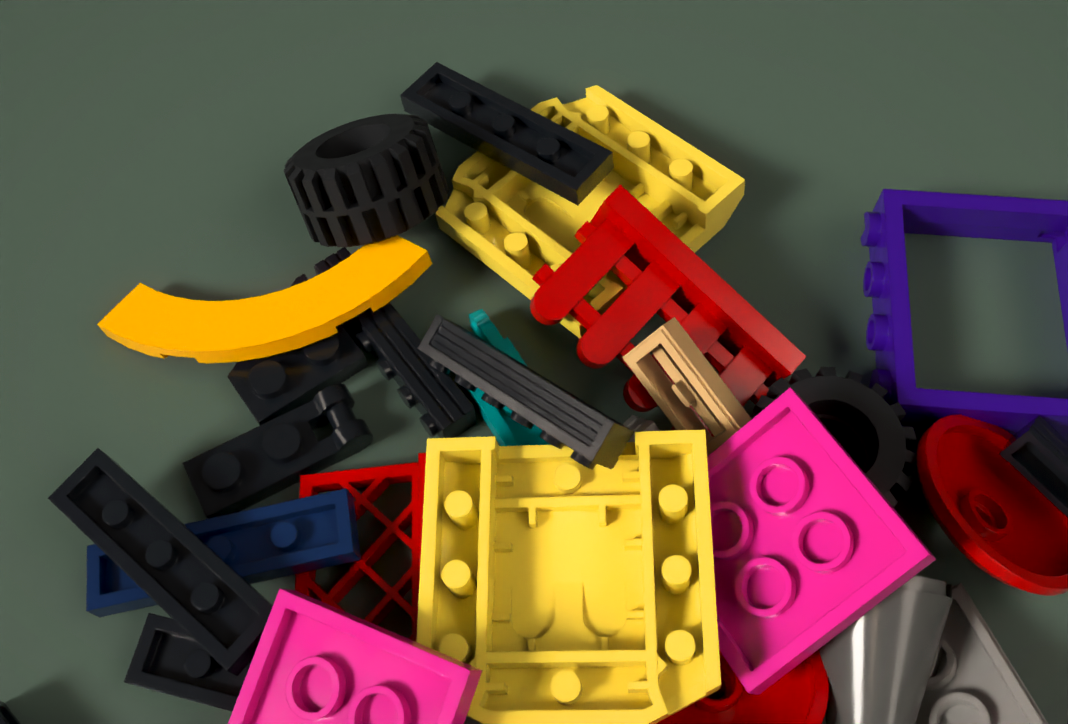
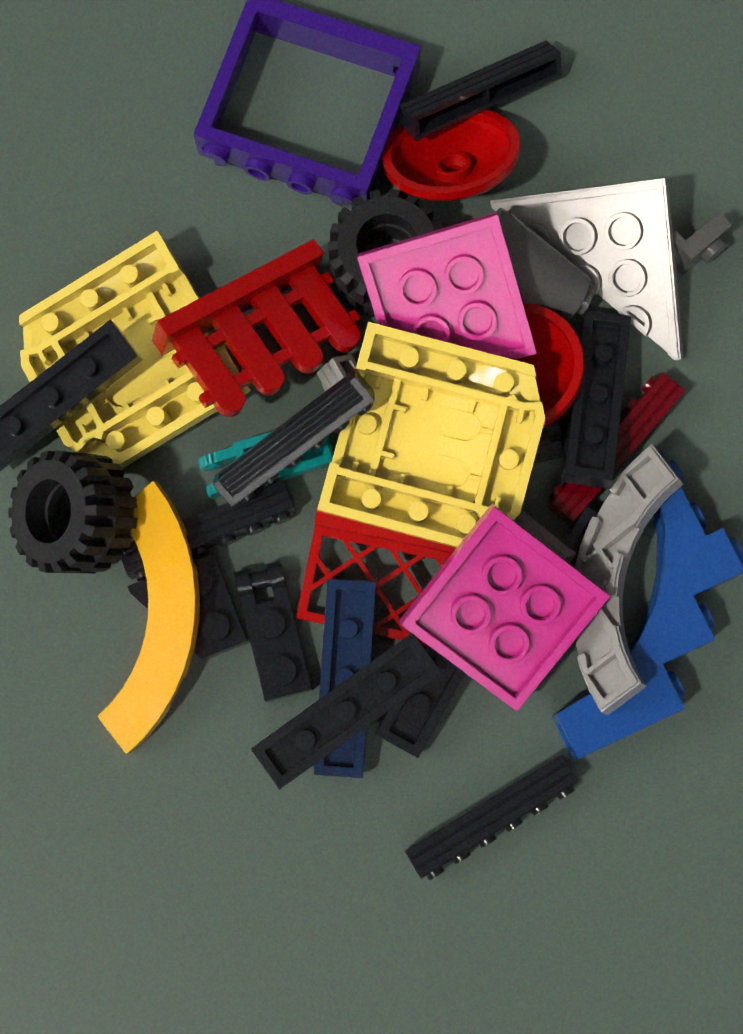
camera: 75 degrees left, 15 degrees up
(694, 384) = (323, 319): tan tile -> none

